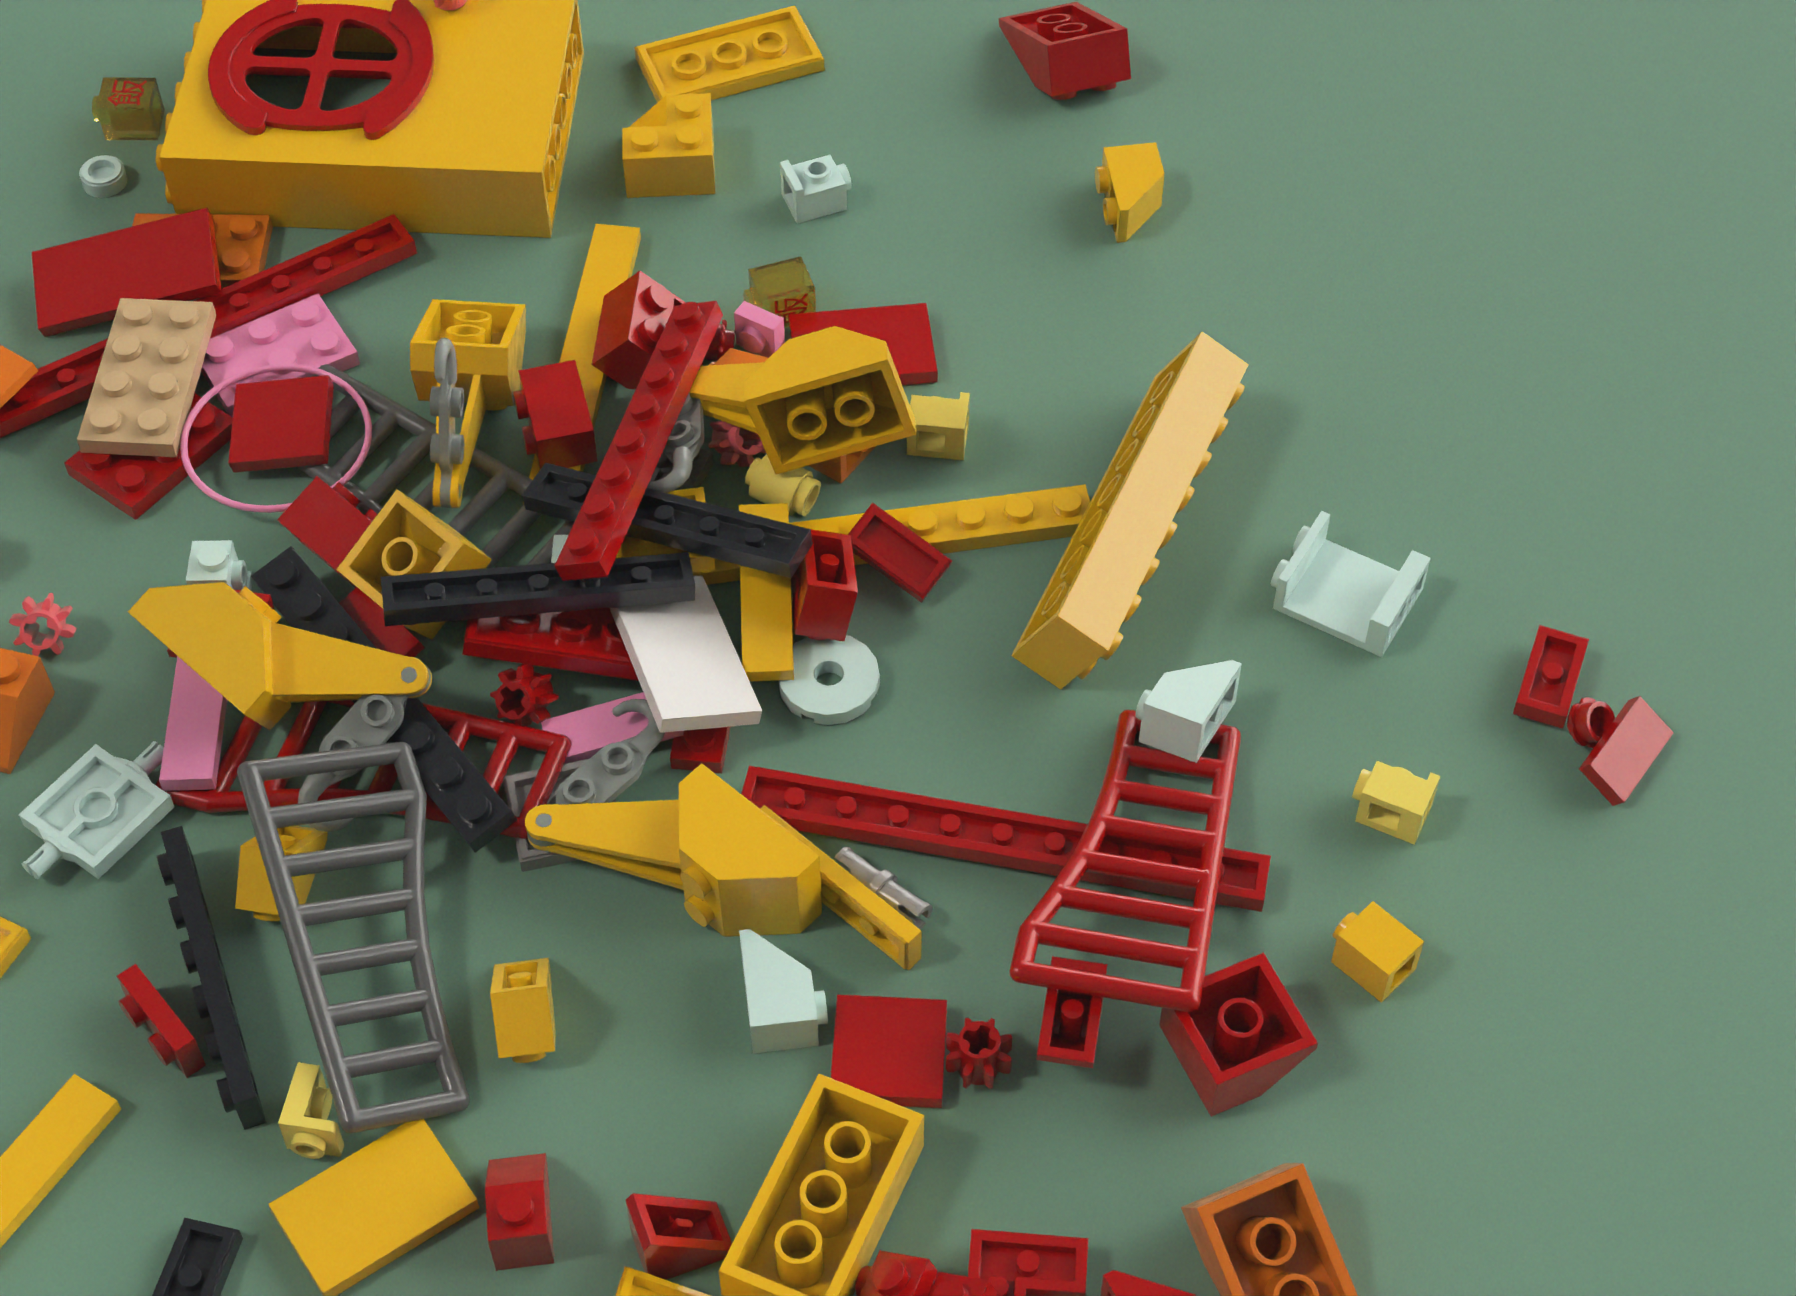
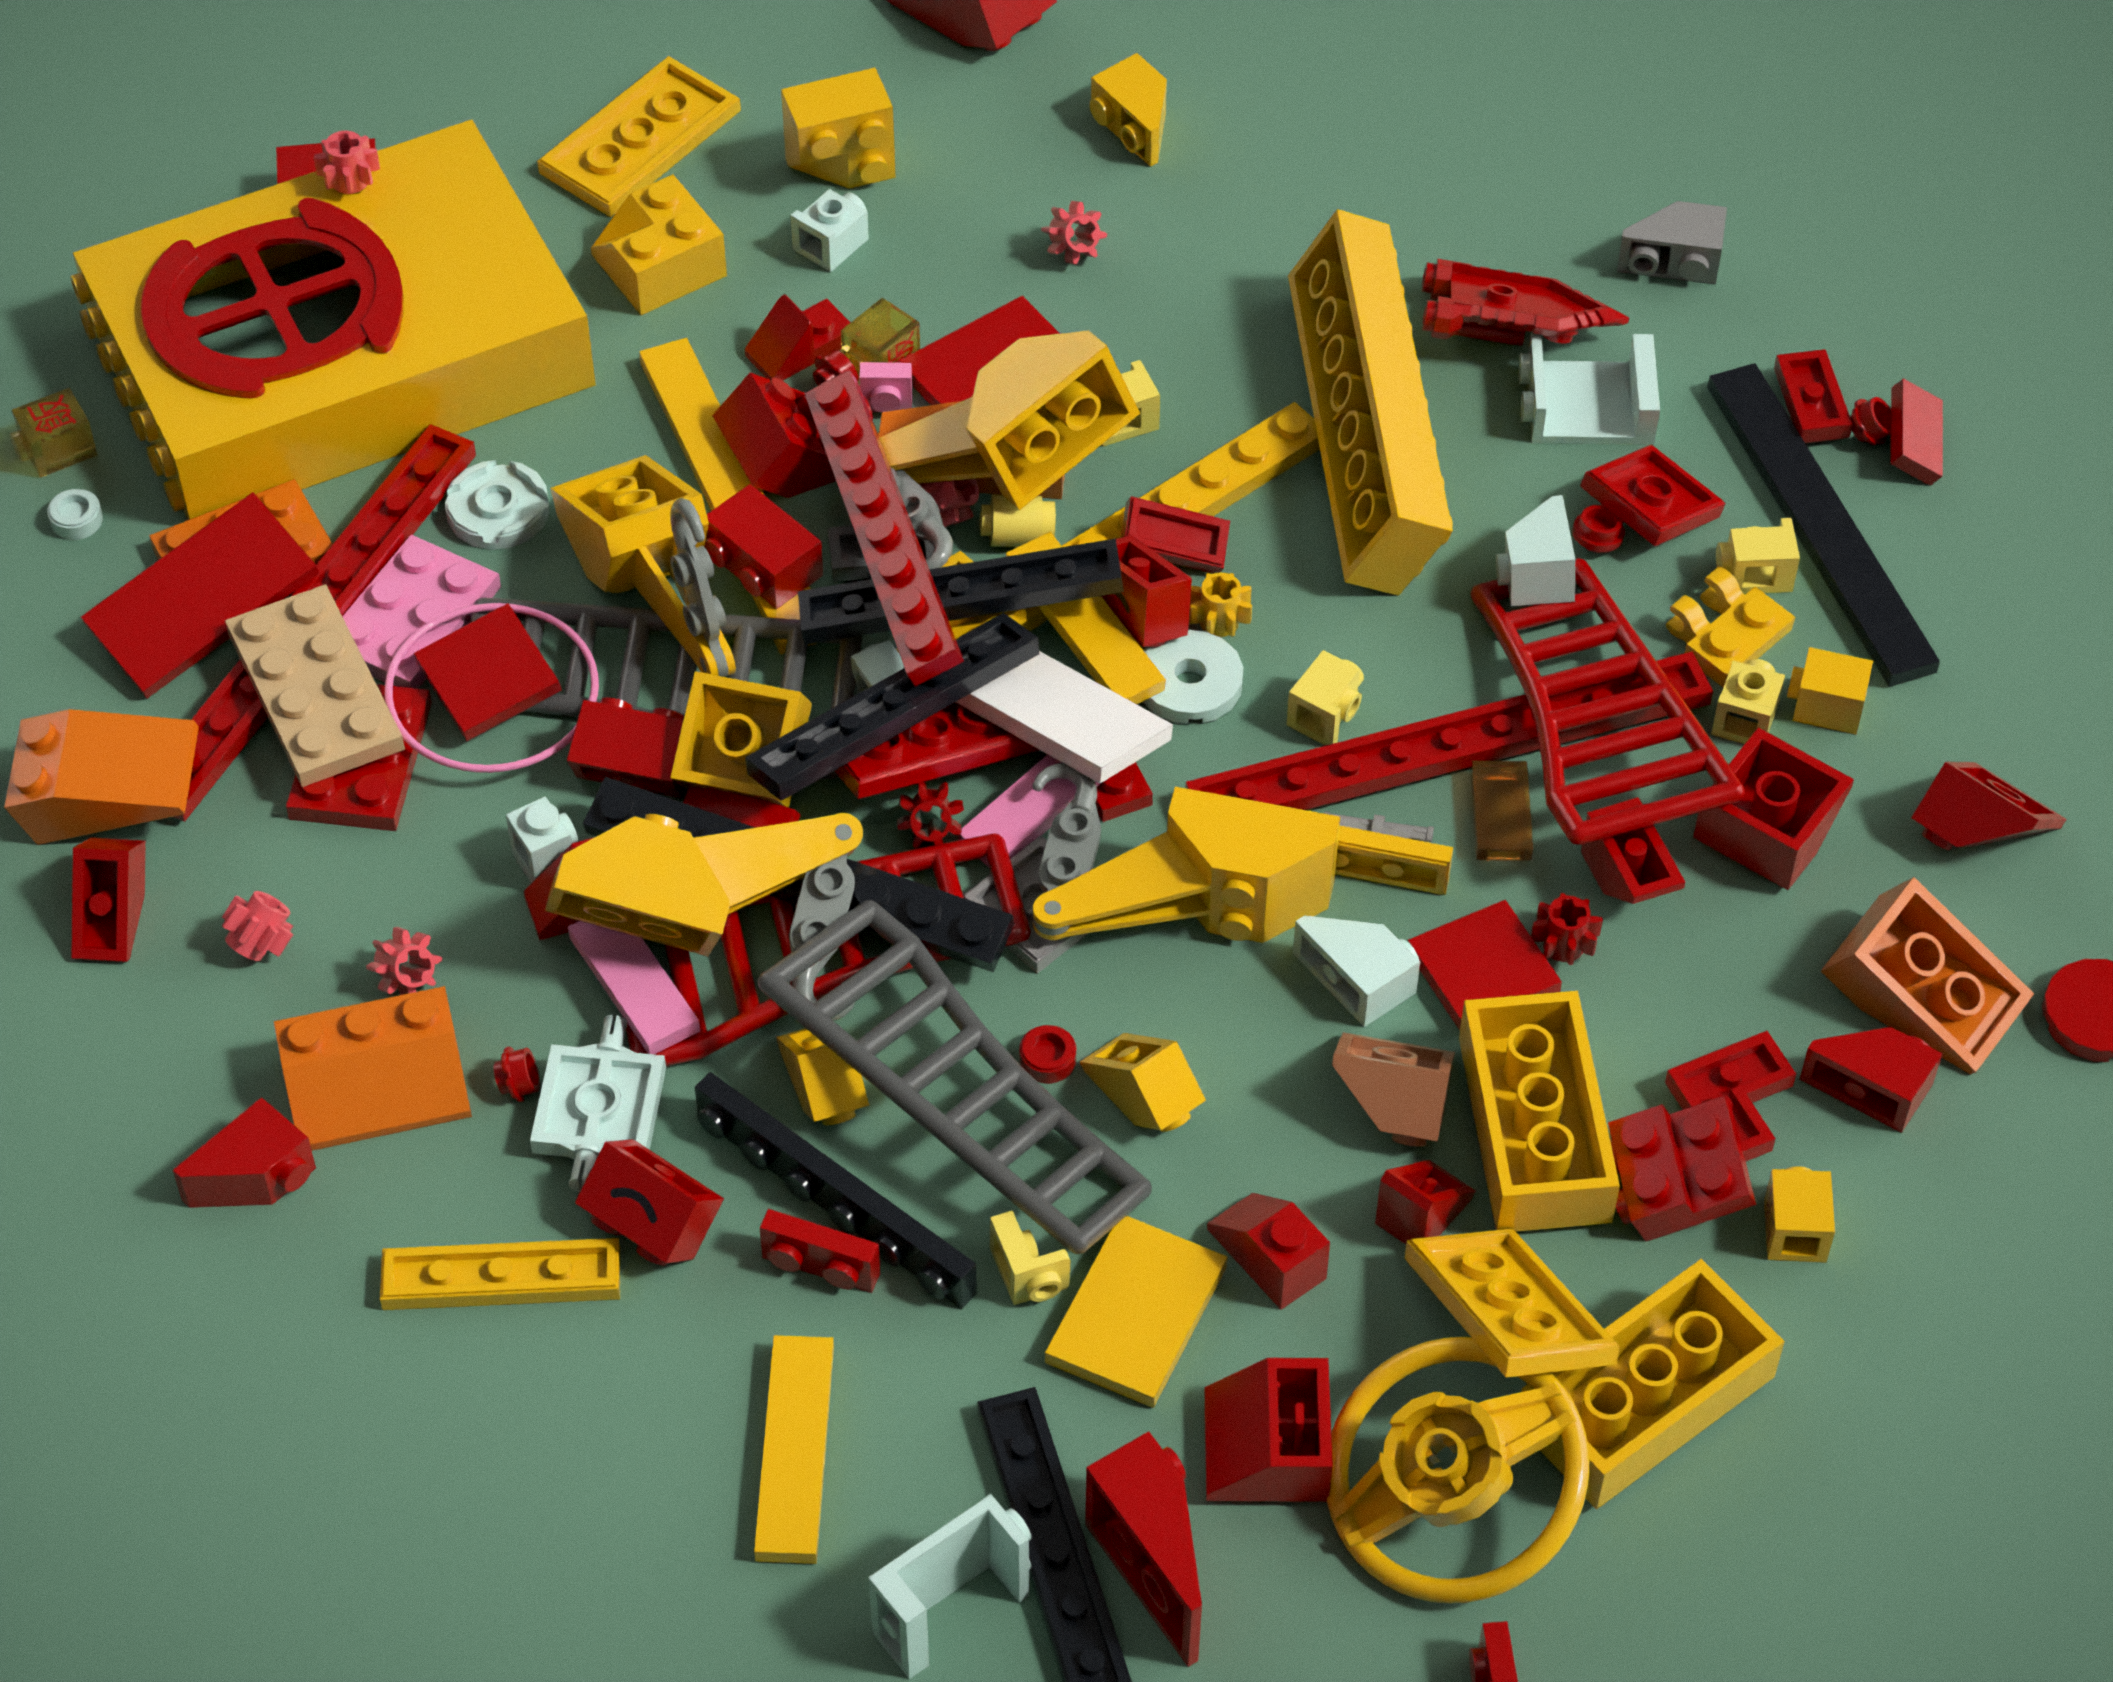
camera: 30 degrees left, 0 degrees up
(58, 753) = (517, 1073): none -> red plate
(60, 910) = (648, 1202): none -> red brick
(399, 296) = (497, 505): none -> light aqua tile
(473, 945) = (1048, 1053): none -> red tile
(721, 267) = (793, 338): none -> red slope
(725, 1117) = (1397, 1084): none -> nougat slope
(729, 301) = (832, 366): none -> red plate
(869, 109) = (840, 129): none -> yellow slope
(893, 628) = (1220, 604): none -> yellow gear
(922, 747) = (1325, 698): none -> light yellow brick
(995, 926) = (1501, 810): none -> clear orange tile
(996, 280) = (1061, 231): none -> coral gear
(1270, 709) = (1598, 529): none -> red plate
(1293, 926) = (1750, 691): none -> light yellow brick
(1323, 479) = (1506, 304): none -> red shield
(1332, 861) = (1743, 632): none -> yellow plate
(1338, 700) = (1652, 495): none -> red tile
(1440, 1125) = (1978, 808): none -> red slope
(1481, 801) = (1823, 525): none -> black tile
(1519, 488) = (1675, 243): none -> light grey slope

